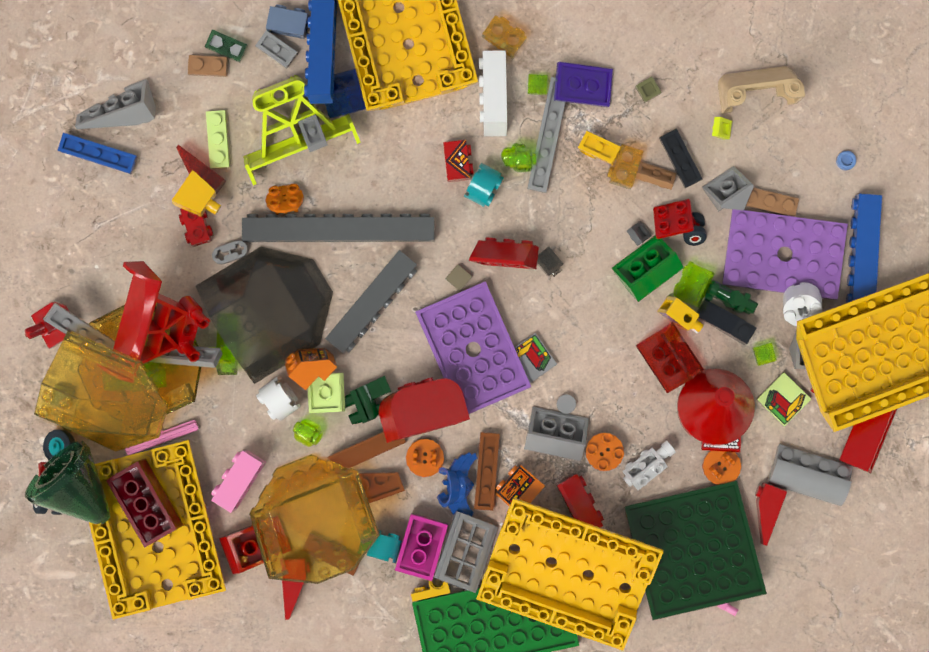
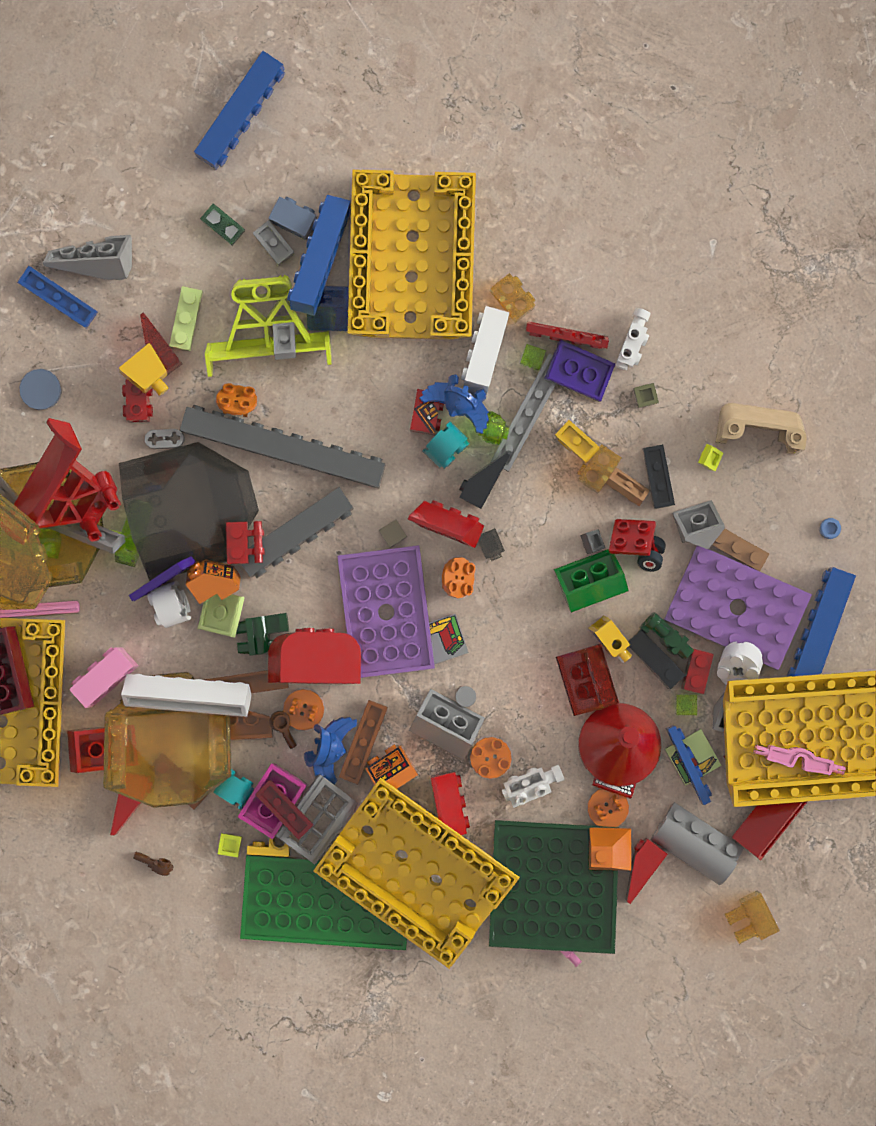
camera: 20 degrees right, 0 degrees up
(105, 240) = (40, 389): none -> sand blue tile
(207, 66) = (197, 239): medium nougat plate -> none
(265, 377) = (162, 578): none -> dark purple tile
(307, 432) = (190, 648): clear neon green head -> none
(317, 474) = (186, 695): none -> white brick
(323, 324) = (237, 542): none -> red plate
(338, 635) = (161, 866): none -> reddish brown plate
(394, 598) = (229, 845): none -> neon yellow plate
(407, 475) = (280, 722): none -> reddish brown plate
(435, 551) = (284, 809): none -> dark red plate
(484, 142) = (459, 401): none -> blue helmet
(525, 209) = (482, 482): none -> black slope
(529, 300) = (458, 577): none -> orange plate
(571, 55) = (574, 336): none -> red wing
(623, 48) = (632, 345): none -> white brick
(693, 284) = (633, 611): clear neon green bracket -> none
(734, 502) = (610, 849): none -> orange slope
(766, 321) = (697, 671): none -> red brick
(788, 412) = (693, 772): none -> blue plate
(870, 373) = (809, 761): none -> bright pink piece
(887, 526) = (761, 920): none -> clear yellow brick

